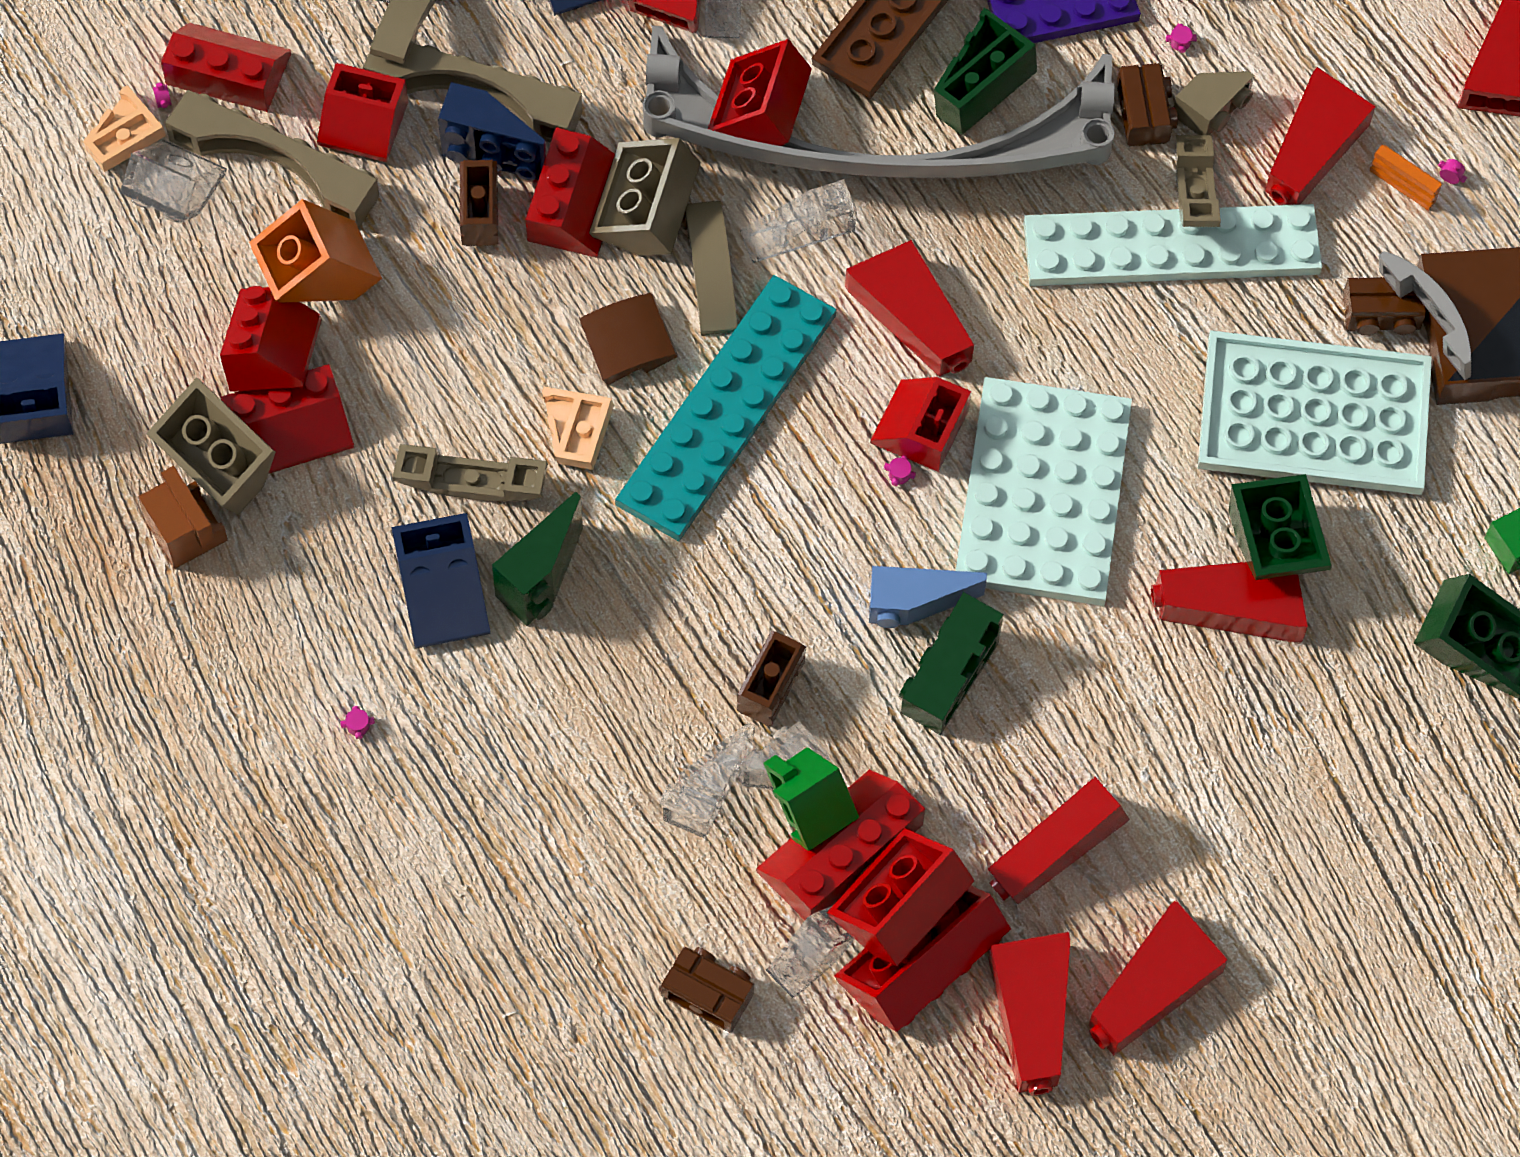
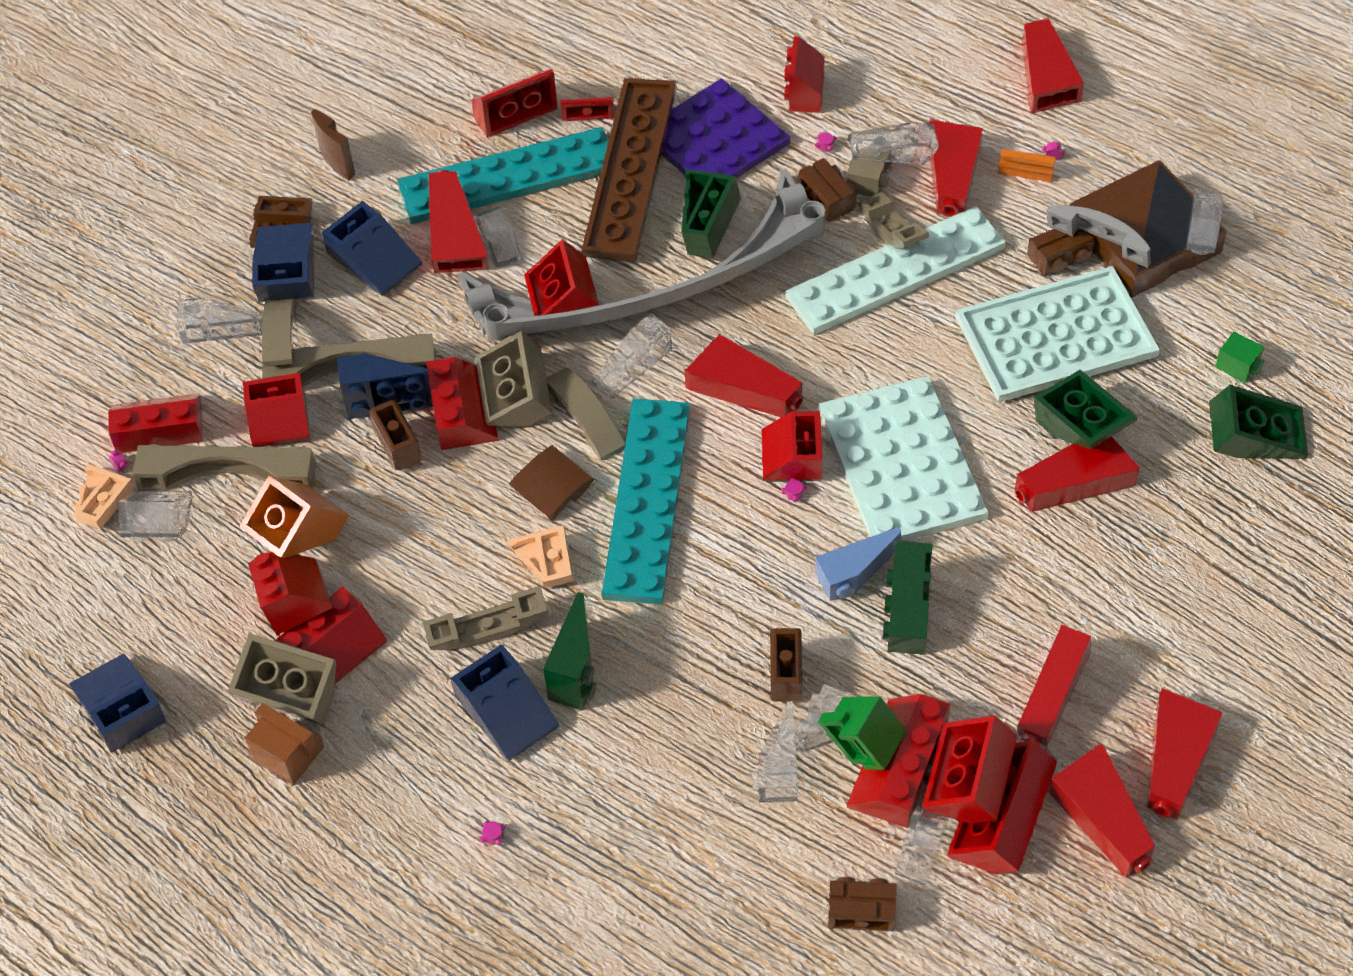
camera: 20 degrees left, 10 degrees down
(1251, 83) = (896, 143): none -> clear slope

